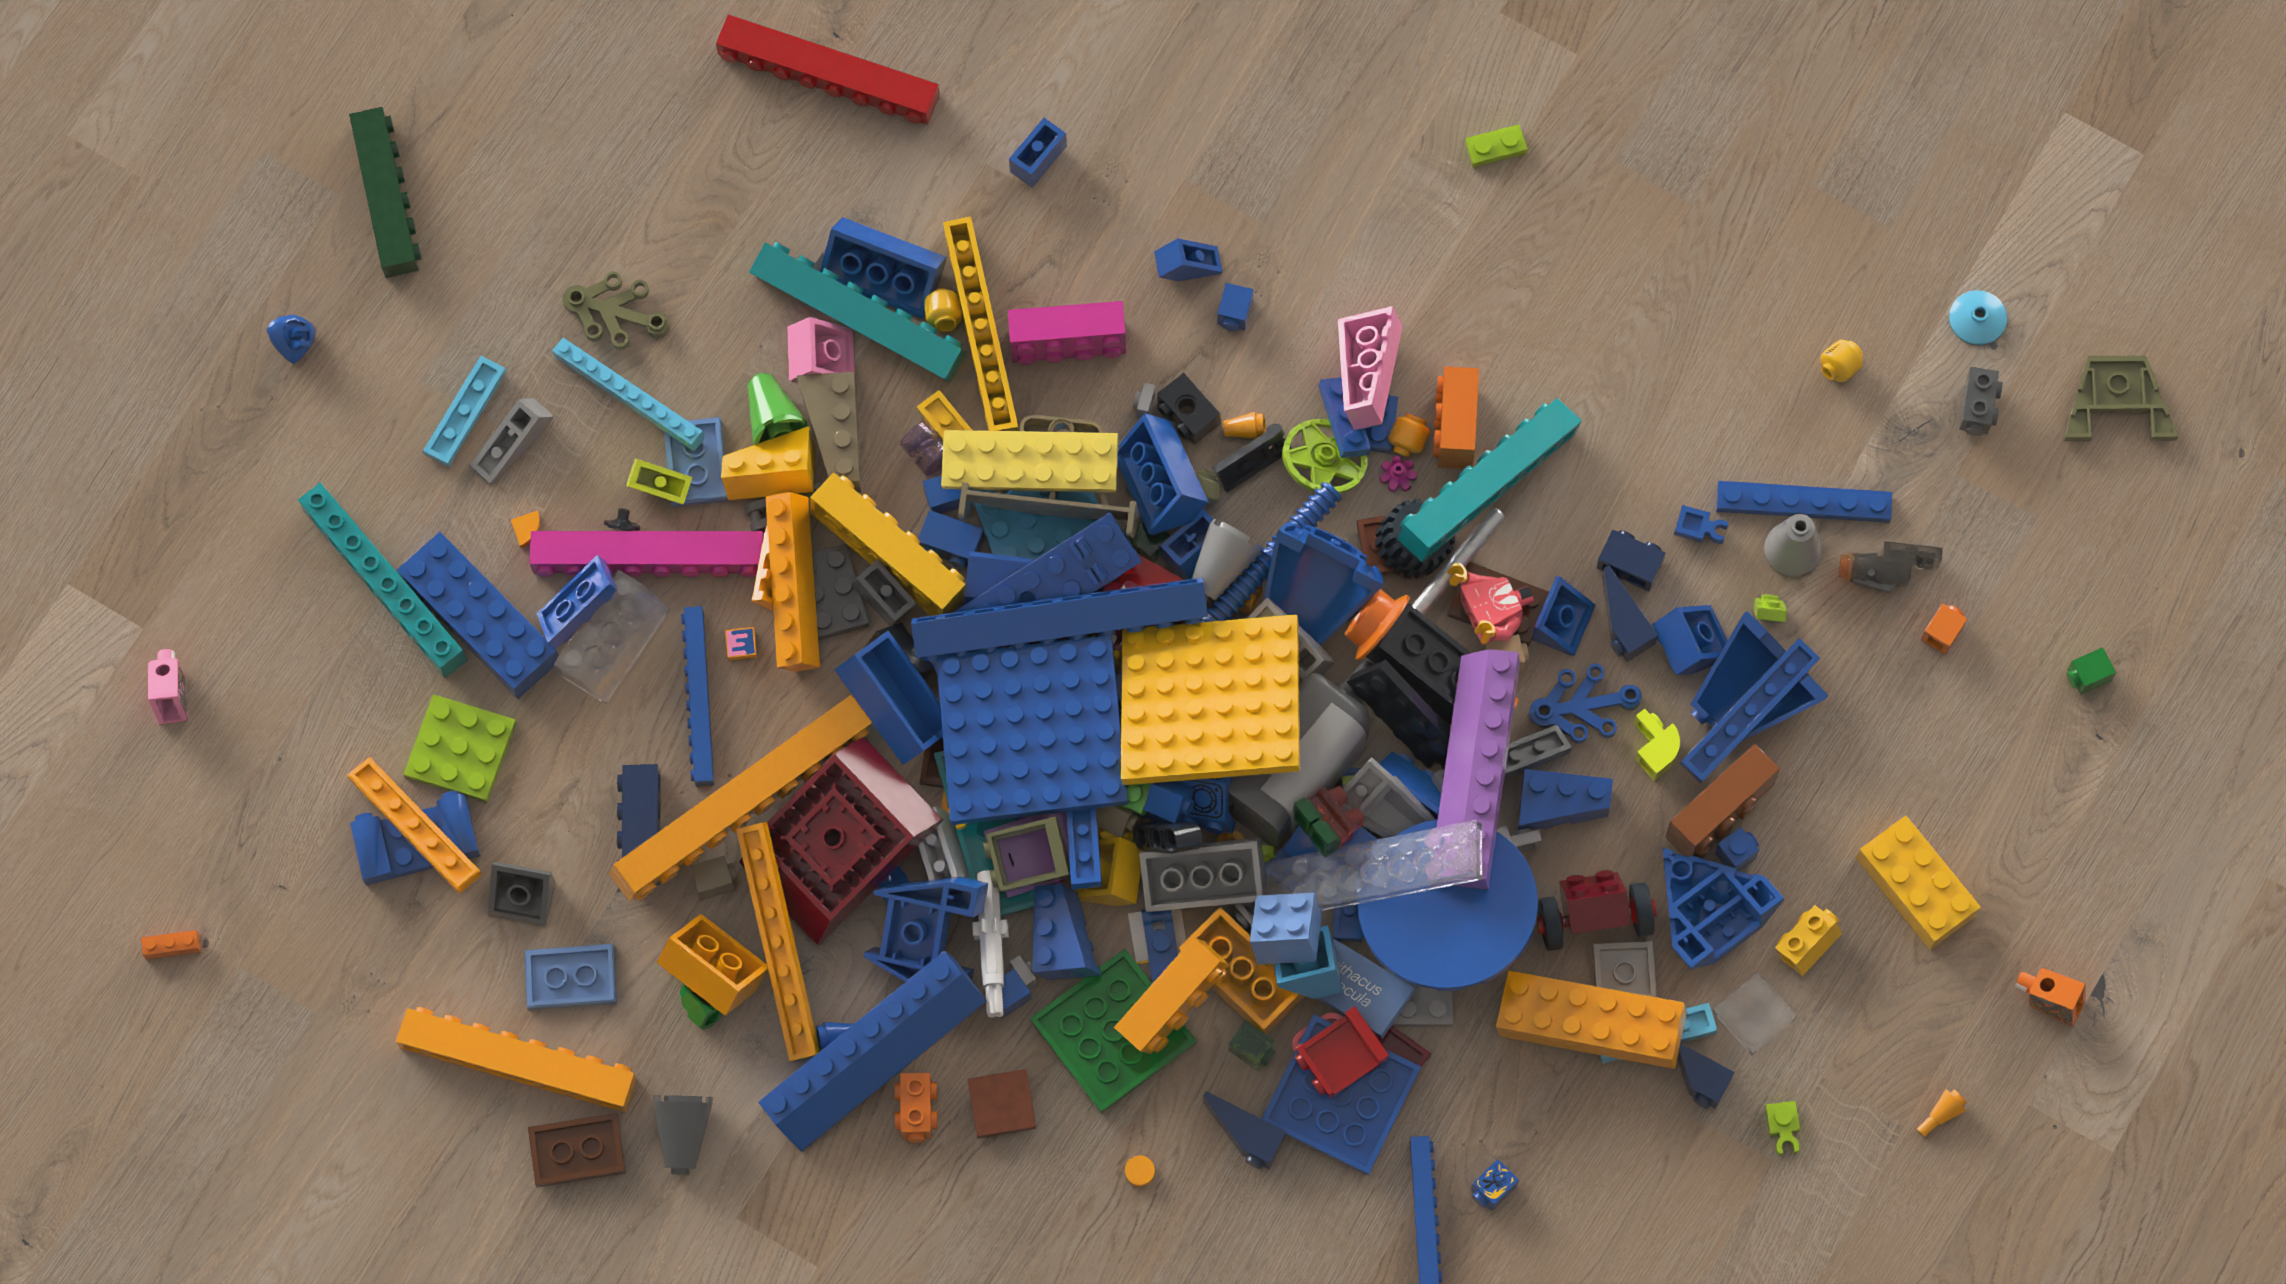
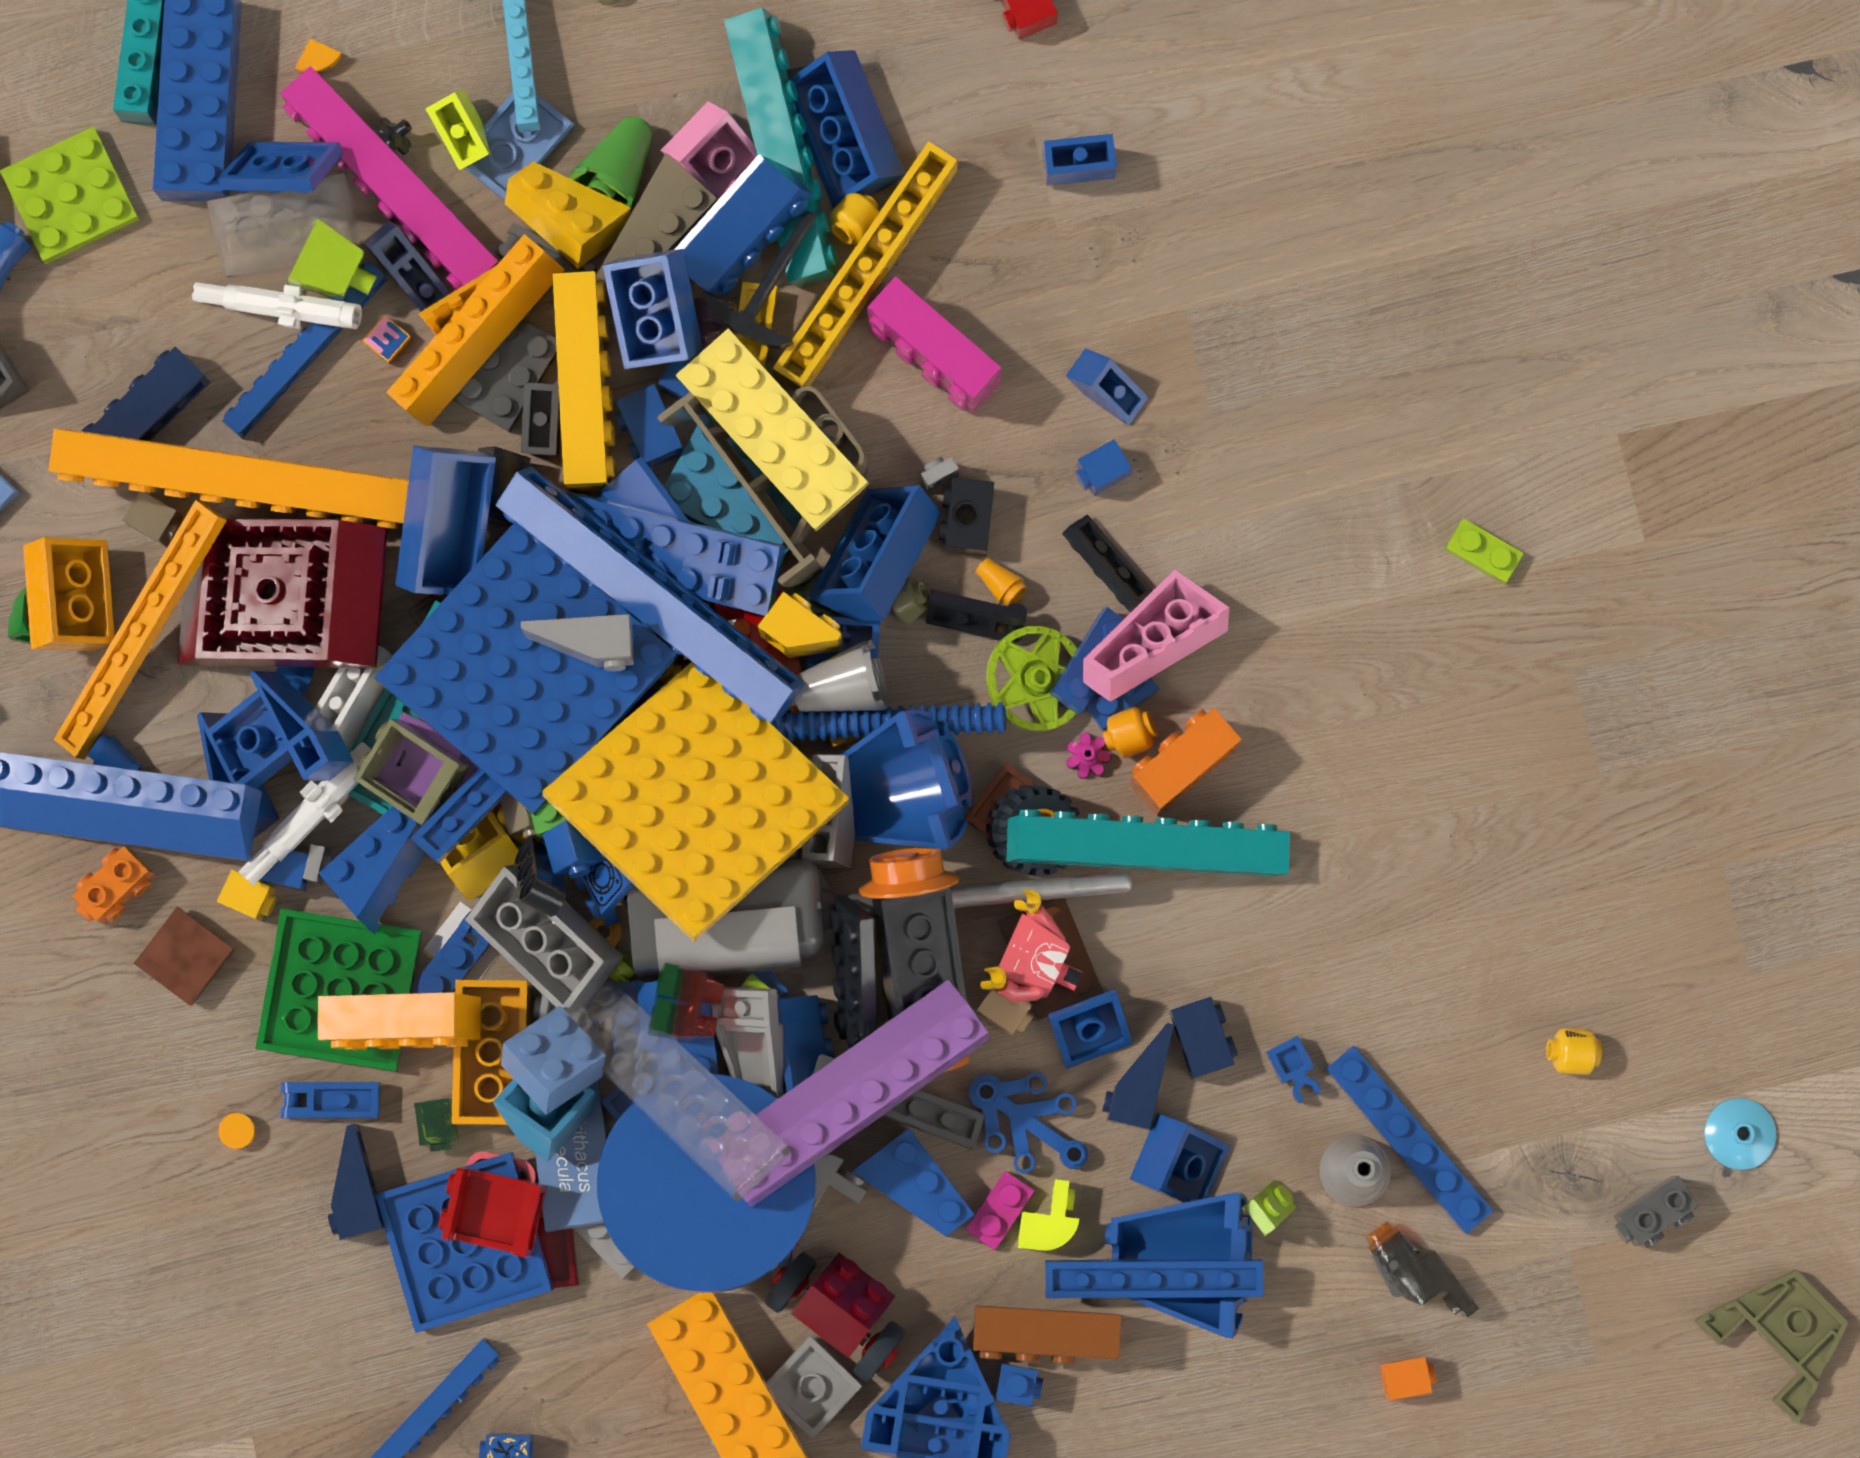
camera: 45 degrees right, 10 degrees up
(666, 627) = (330, 265): none -> lime torso
(666, 677) = (288, 306): none -> white piece
(711, 590) = (406, 266): none -> dark blue slope
(887, 371) = (743, 224): none -> blue slope
(888, 462) = (653, 308): none -> blue brick
(945, 419) = (745, 321): none -> black piece
(1002, 1032) = (247, 899): none -> yellow brick
(1057, 671) = (595, 640): none -> light grey slope
(1167, 551) = (798, 631): none -> yellow slope
(1176, 1096) = (331, 1100): none -> blue plate
(1295, 356) = (1107, 562): none -> black plate
(1623, 769) = (999, 1210): none -> dark pink plate

